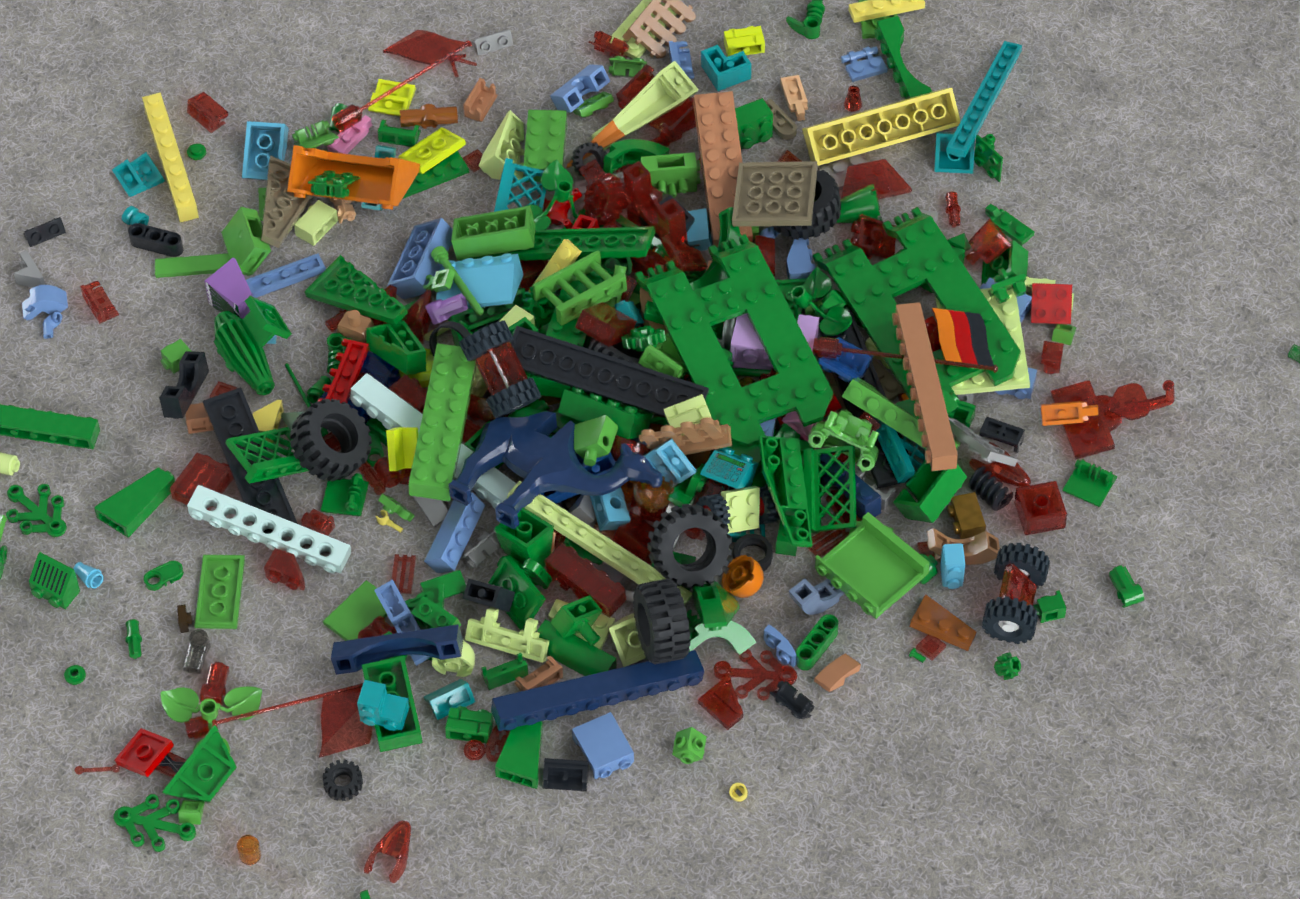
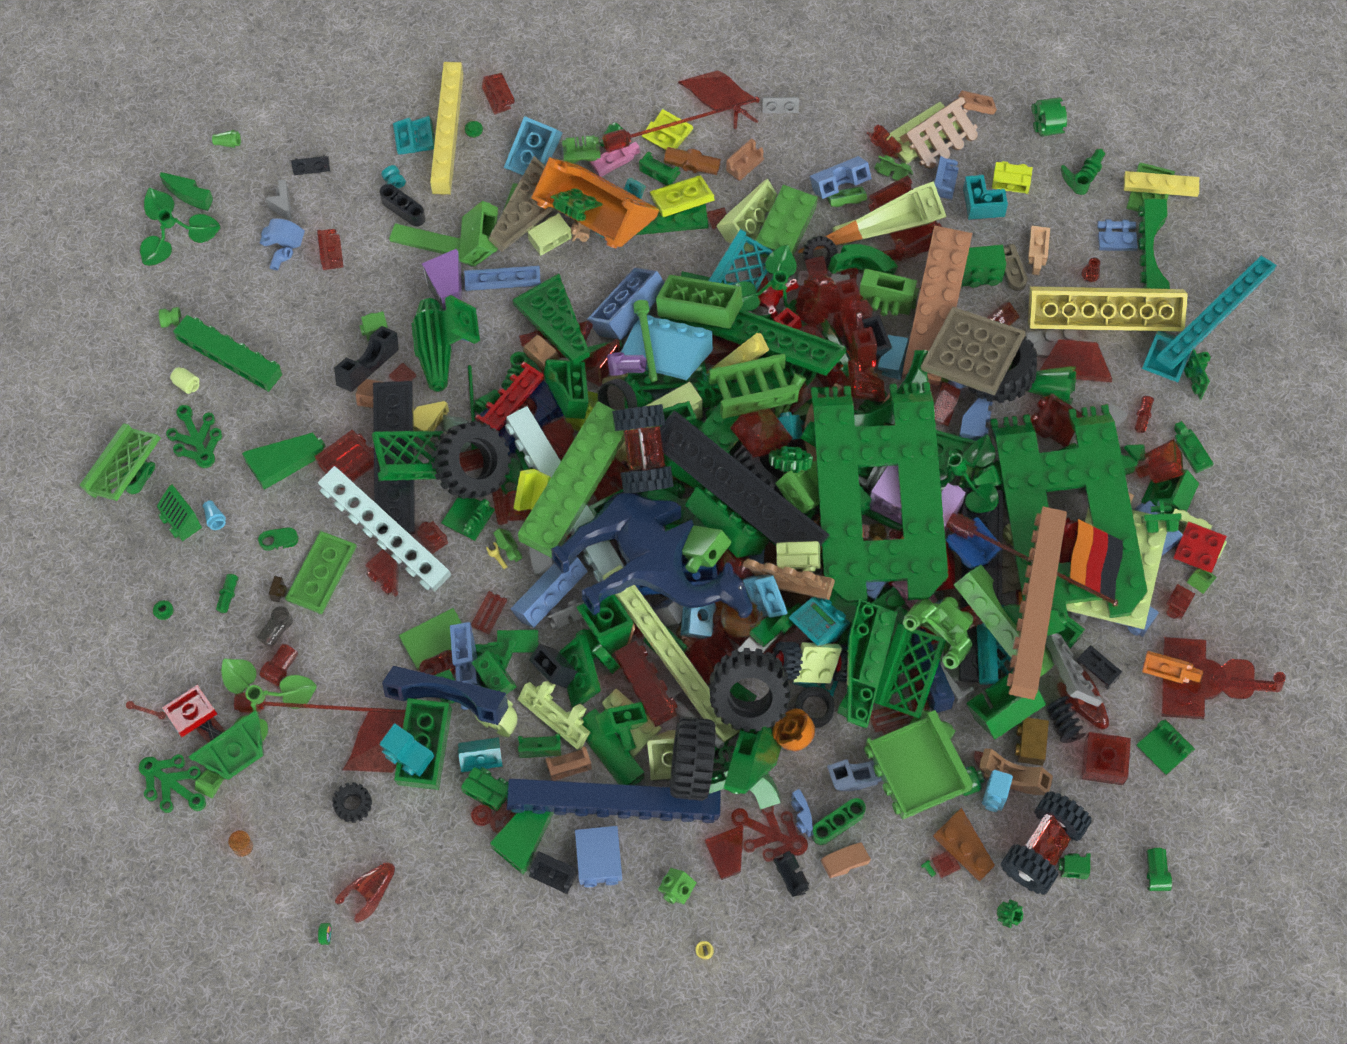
camera: 20 degrees right, 10 degrees up
(441, 281) = (631, 335): bright green plate -> none

